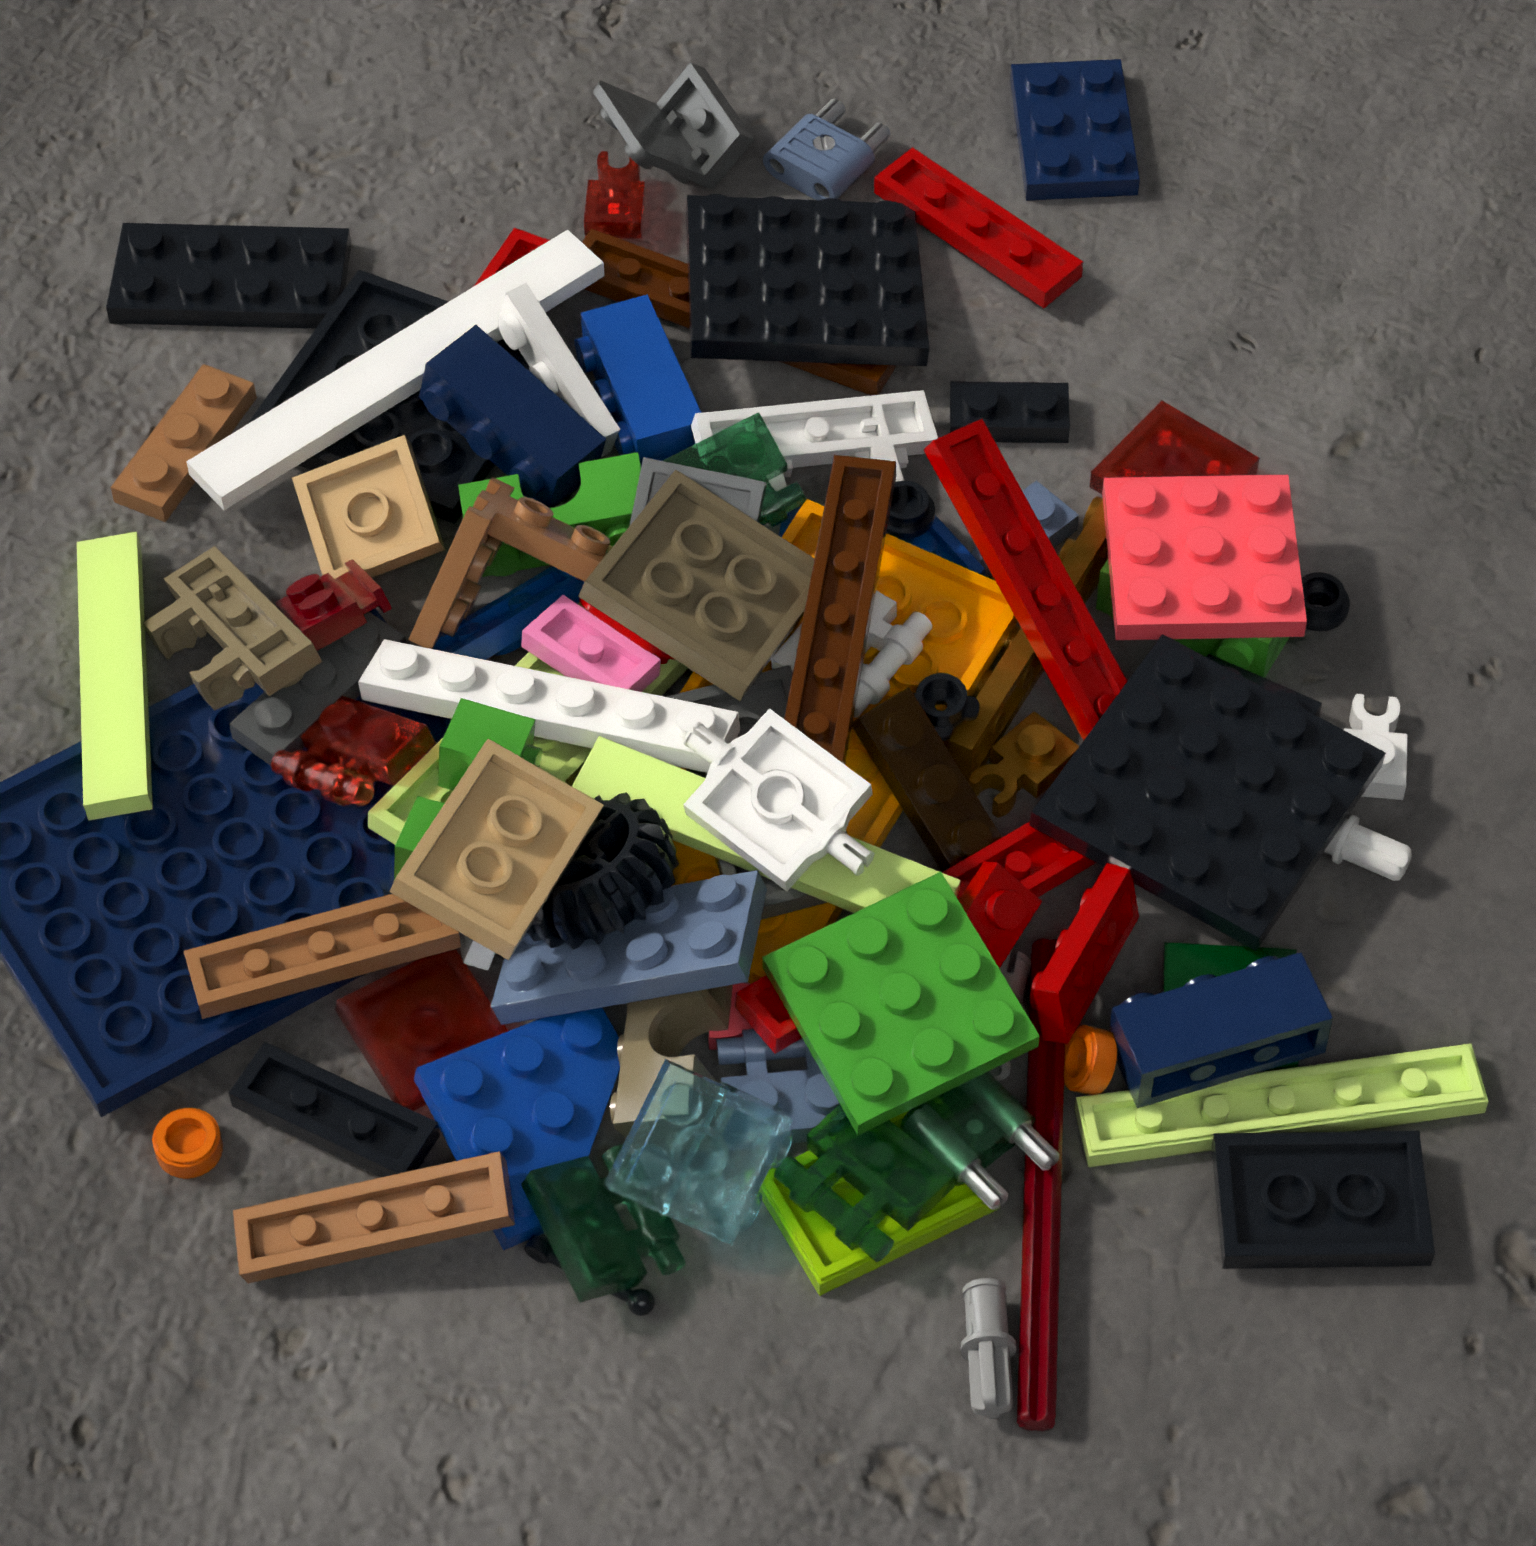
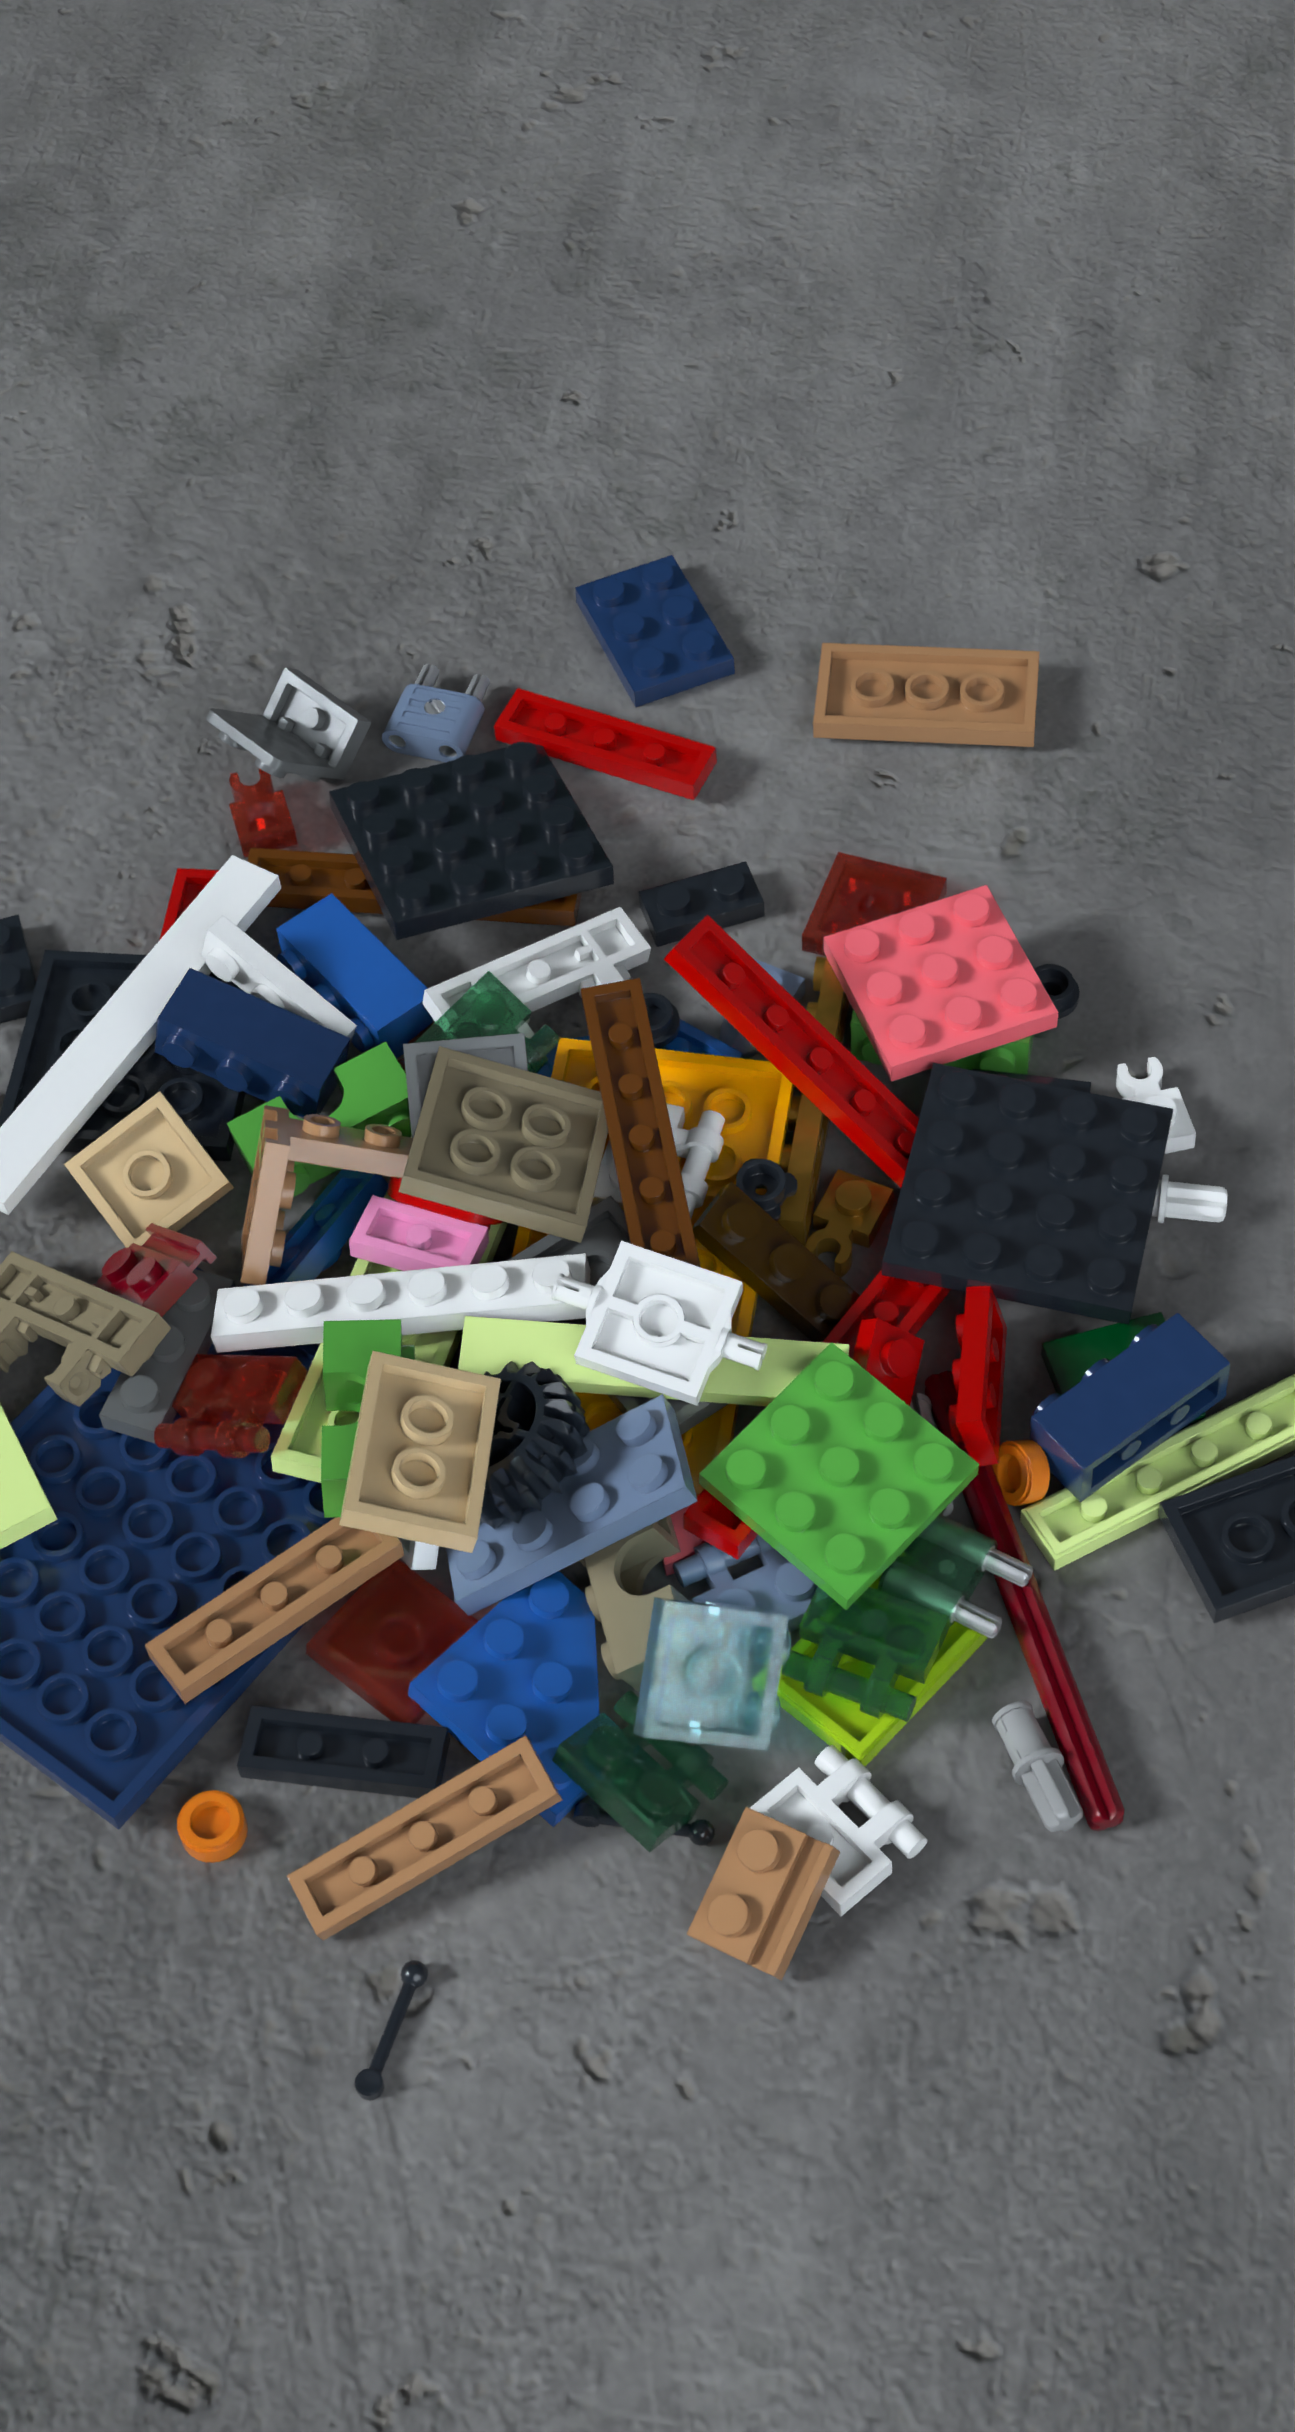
camera: 15 degrees left, 0 degrees up
(237, 1427) = (369, 2081): none -> black hinge
(671, 1377) = (763, 1893): none -> medium nougat plate
(751, 1350) = (816, 1813): none -> white plate
(1318, 270) = (926, 694): none -> medium nougat plate

